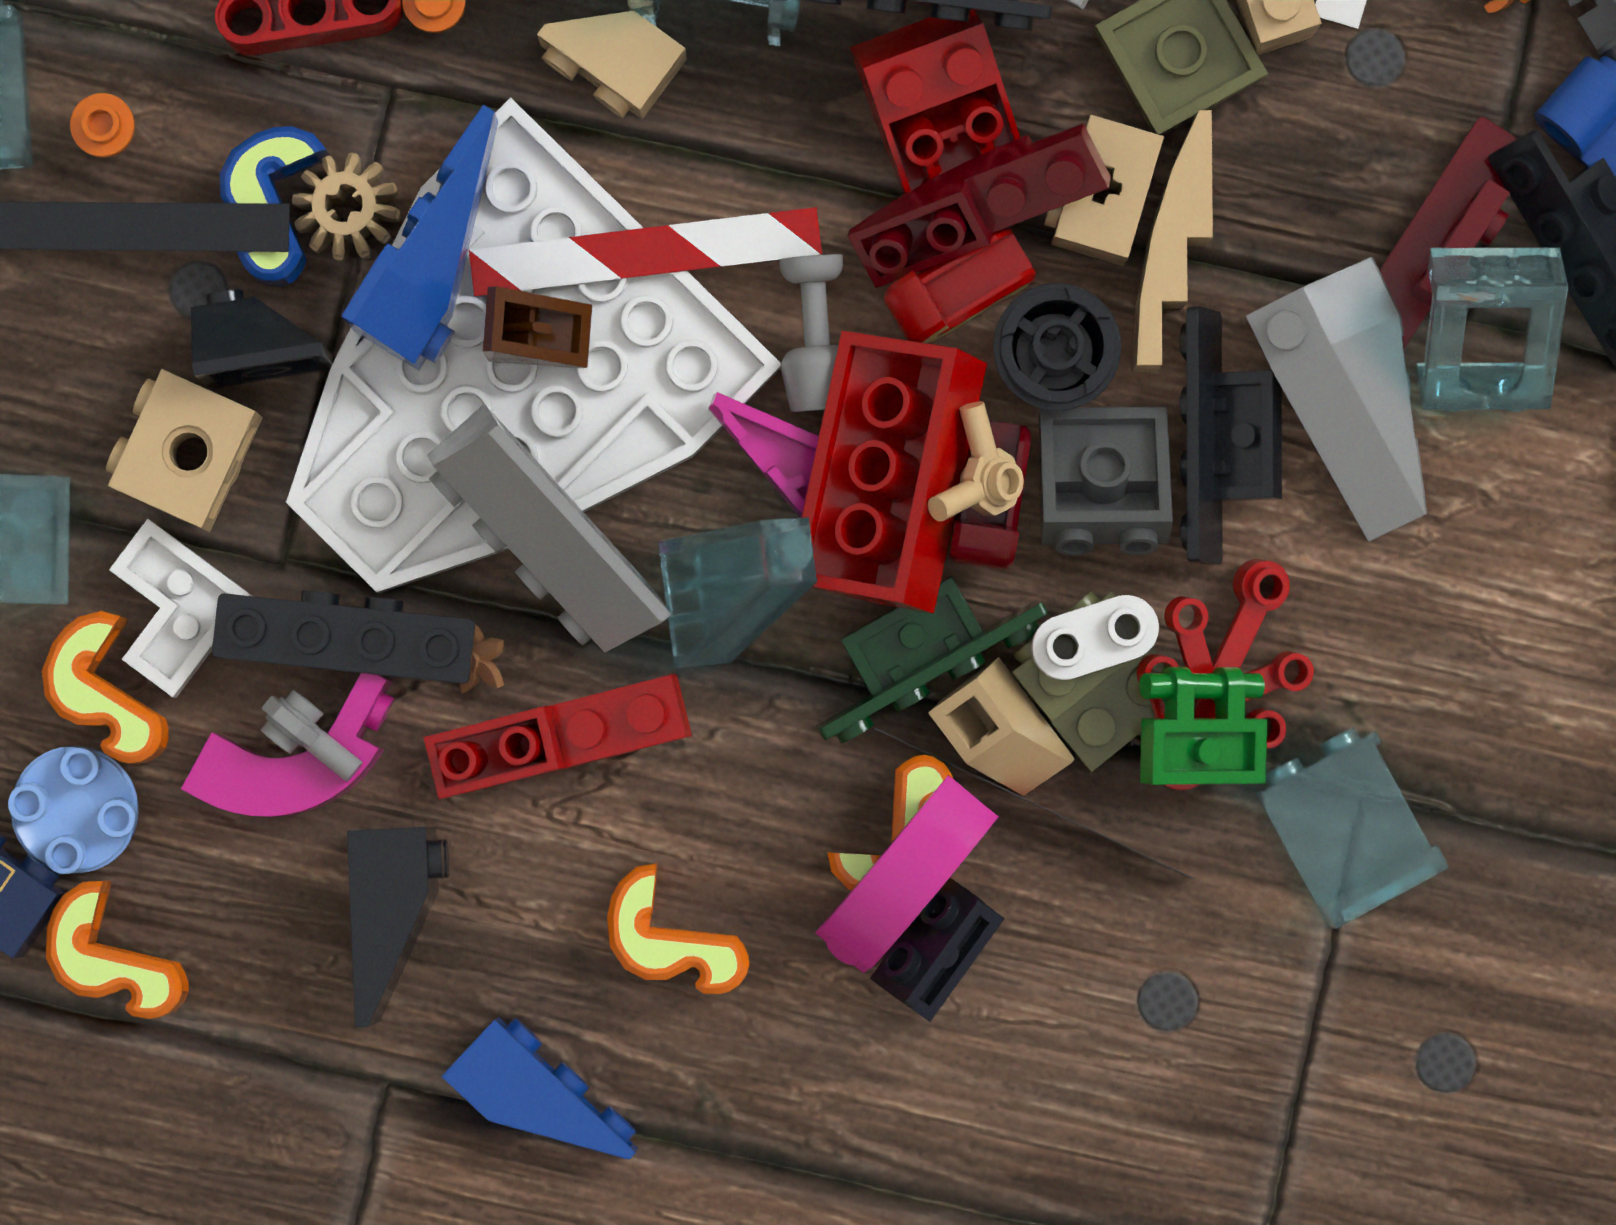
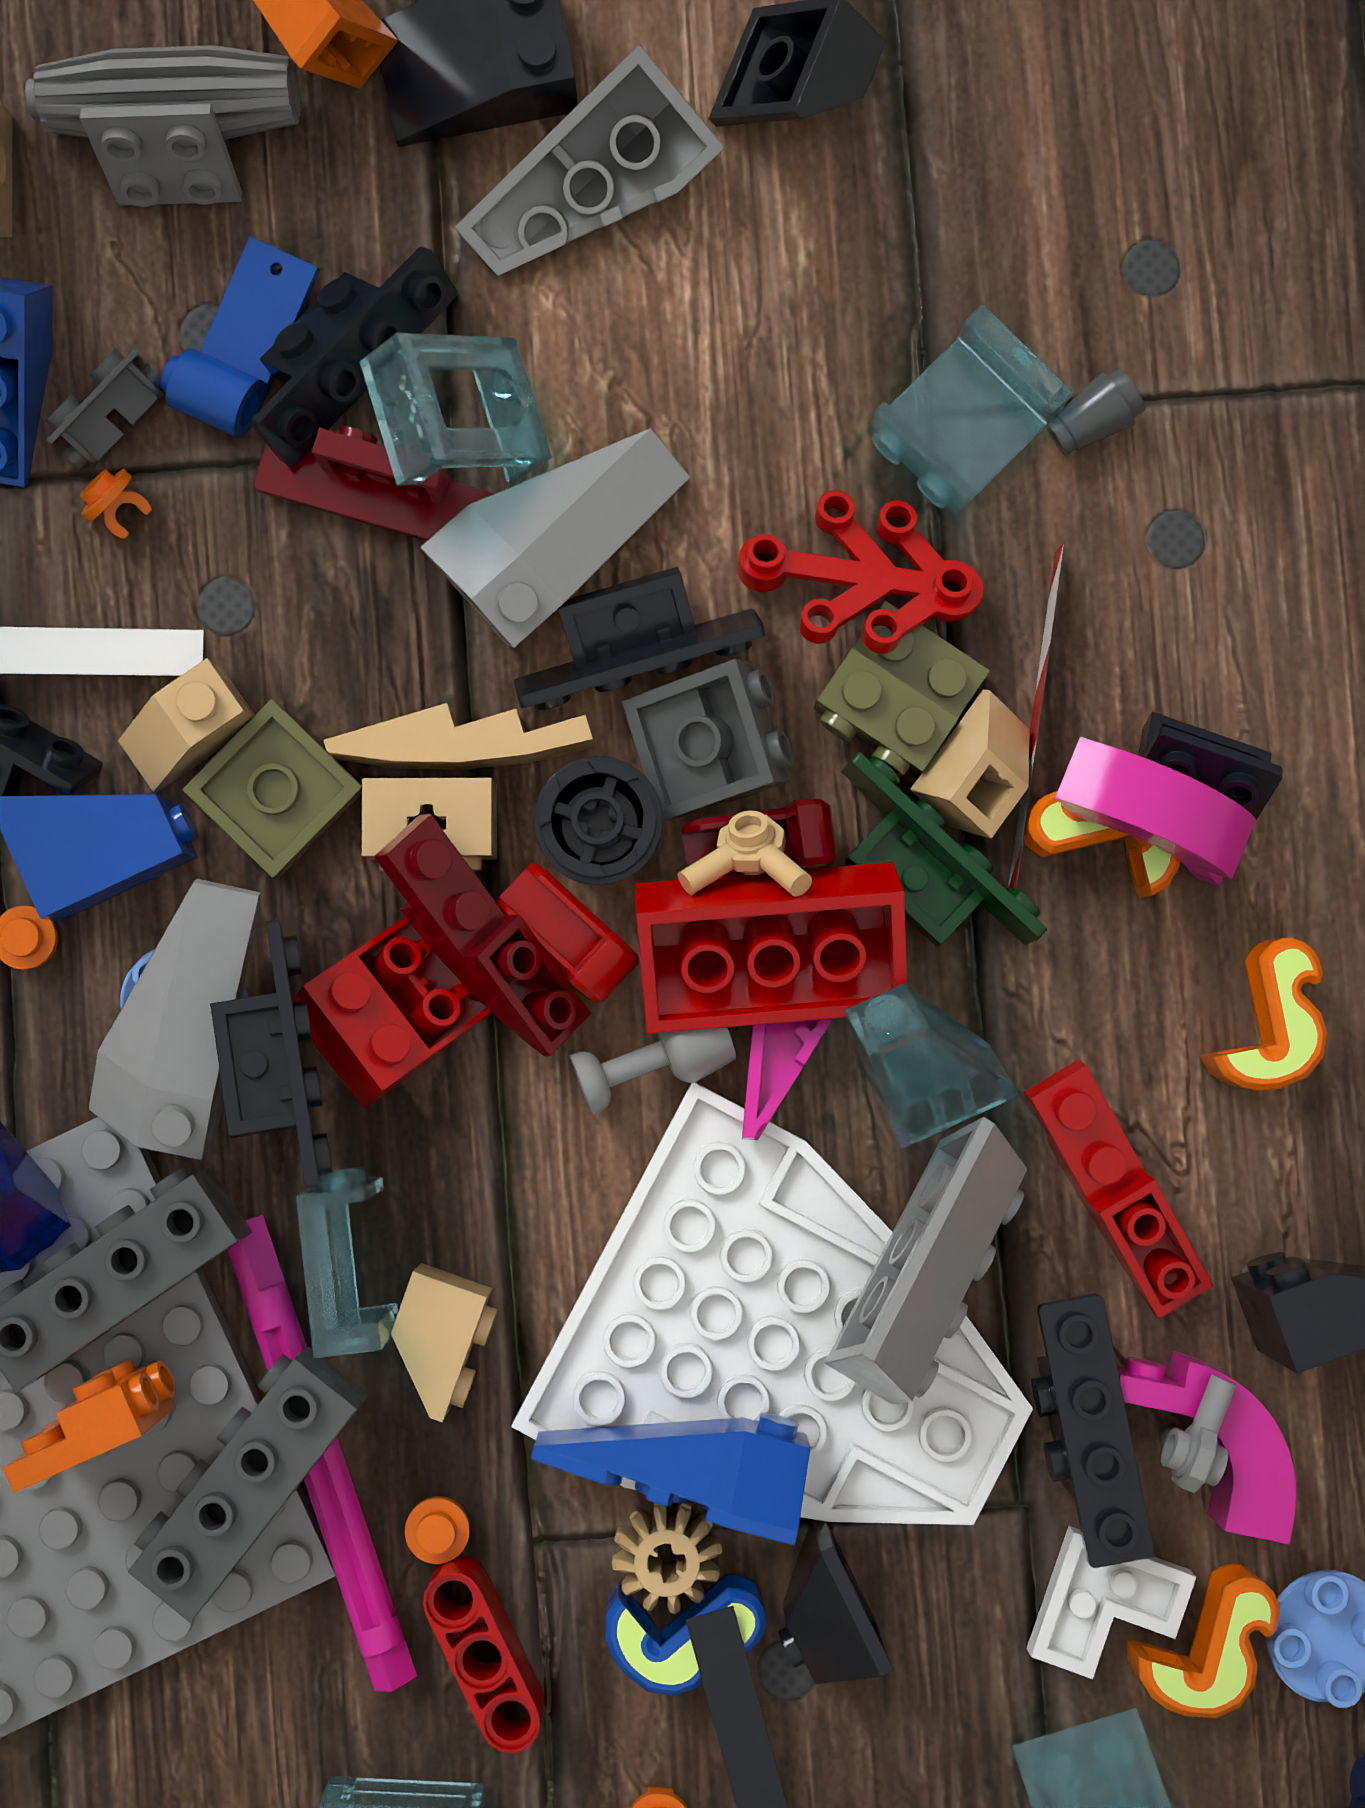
camera: 105 degrees left, 0 degrees up
(170, 414) = (978, 1674): tan brick -> none
(482, 667) = (1063, 1286): medium nougat plant -> none
(536, 329) = (735, 1335): reddish brown slope -> none
(646, 251) = (623, 1248): sticker -> none
(1095, 637) = (865, 701): white plate -> none
(1203, 749) = (943, 562): green plate -> none
(1313, 954) = (1096, 412): none -> dark grey cone

